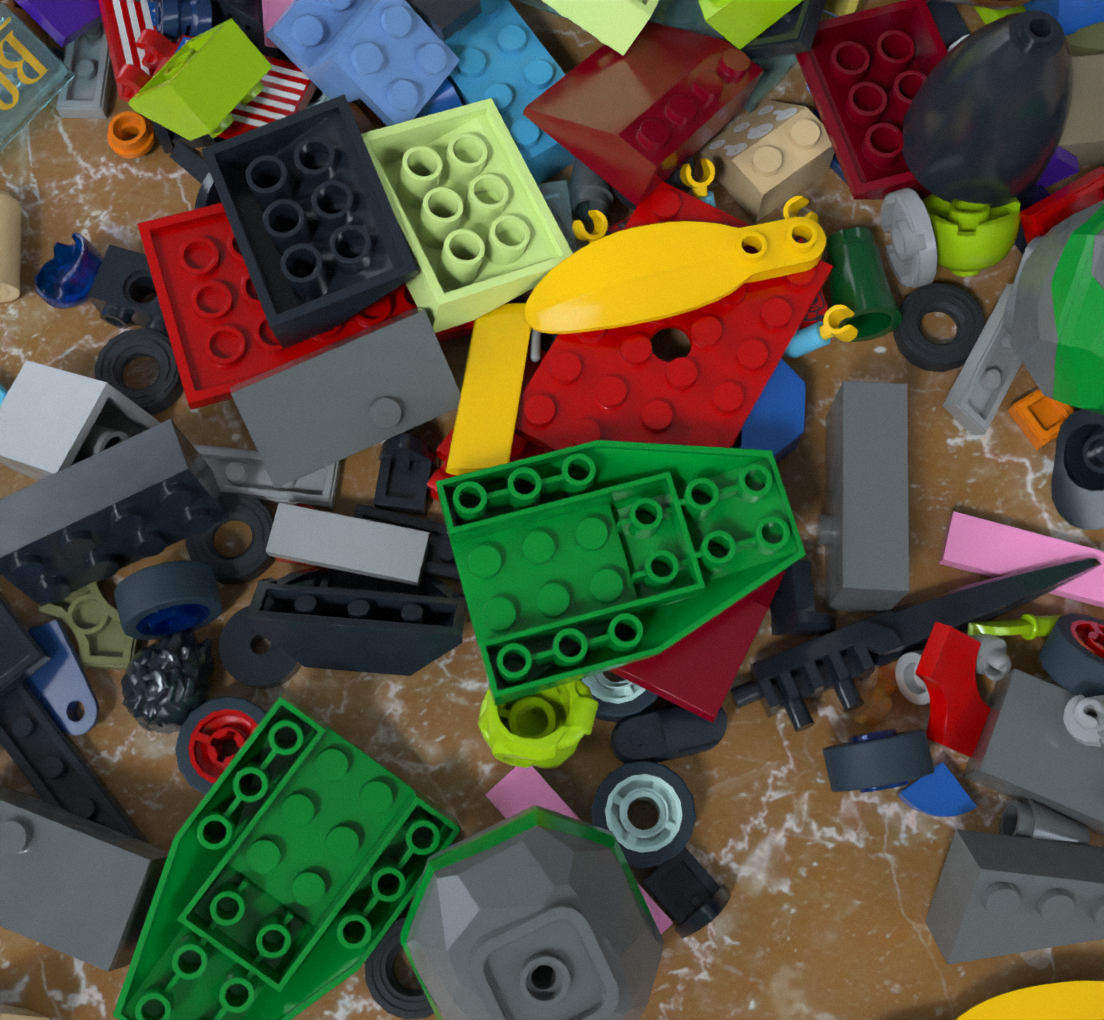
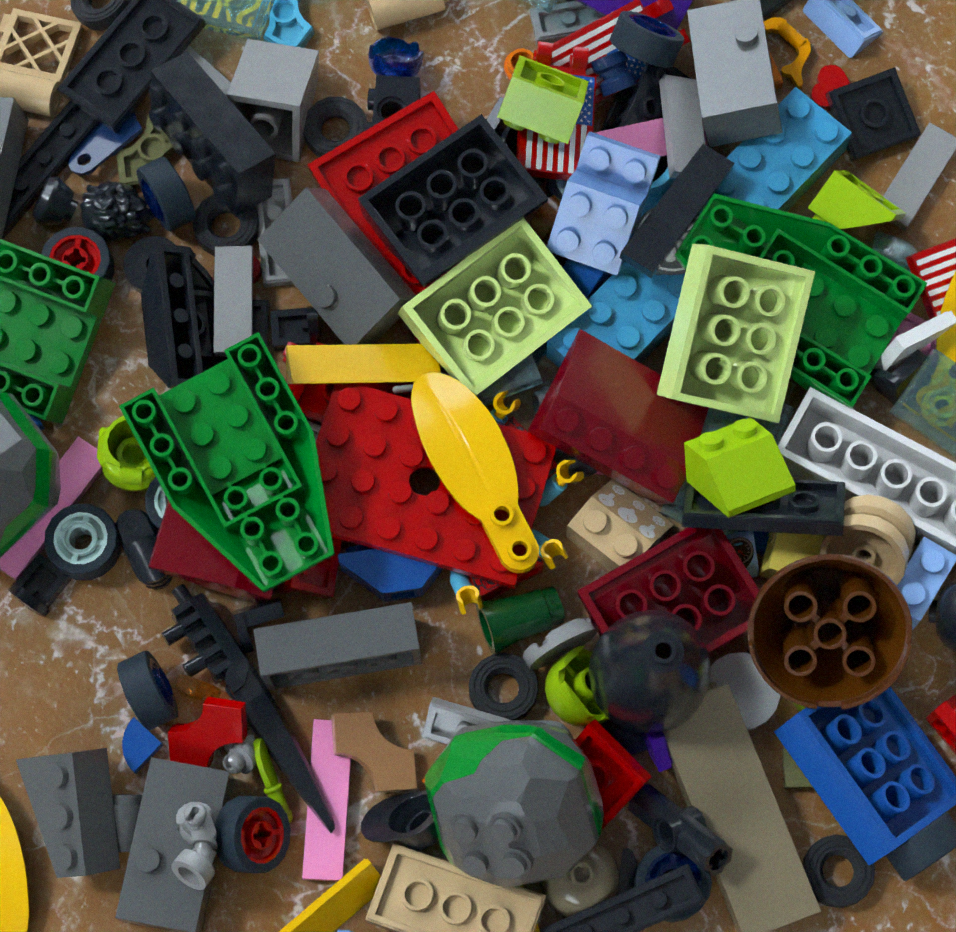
camera: 75 degrees right, 0 degrees up
(129, 763) = (54, 203): none -> black cone
(1017, 481) = (387, 764): none -> medium nougat tile

